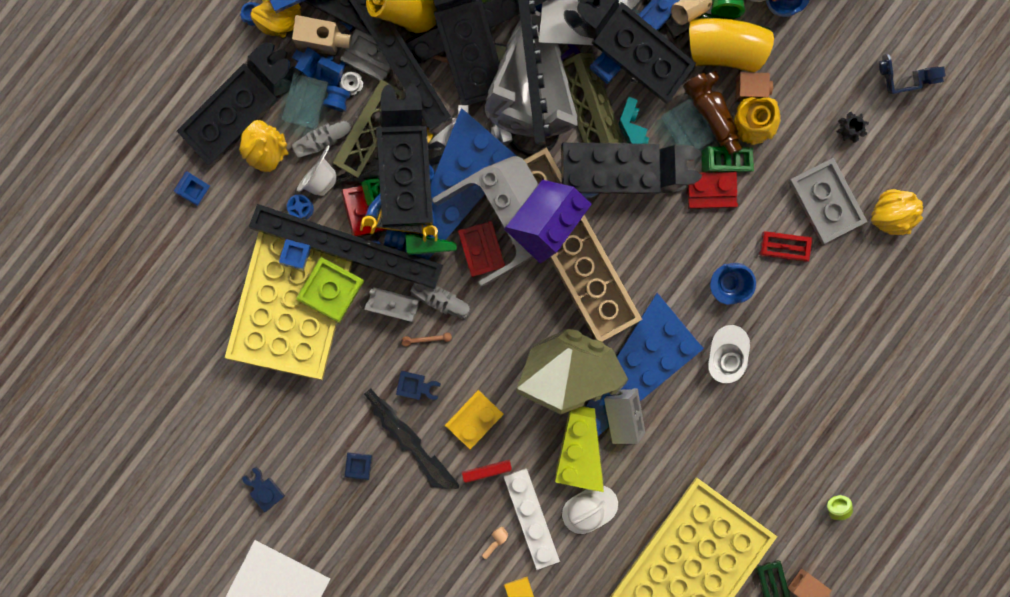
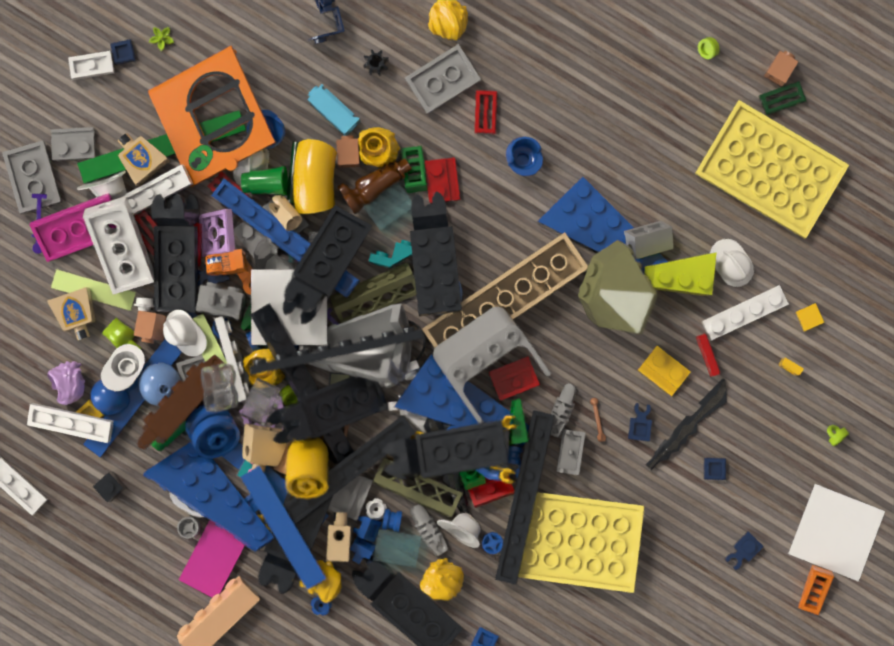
camera: 95 degrees left, 0 degrees up
(218, 580) = (814, 571): none -> orange slope
(294, 254) = (537, 540): blue tile -> none
(330, 290) = (564, 507): lime tile -> none
(464, 565) = (790, 366): none -> yellow tile
(500, 536) = (763, 338): light nougat hand -> none
(547, 218) = (488, 321): dark purple slope -> none
(729, 354) = (586, 154): white piece -> none
(802, 75) = (333, 109): none -> medium azure window

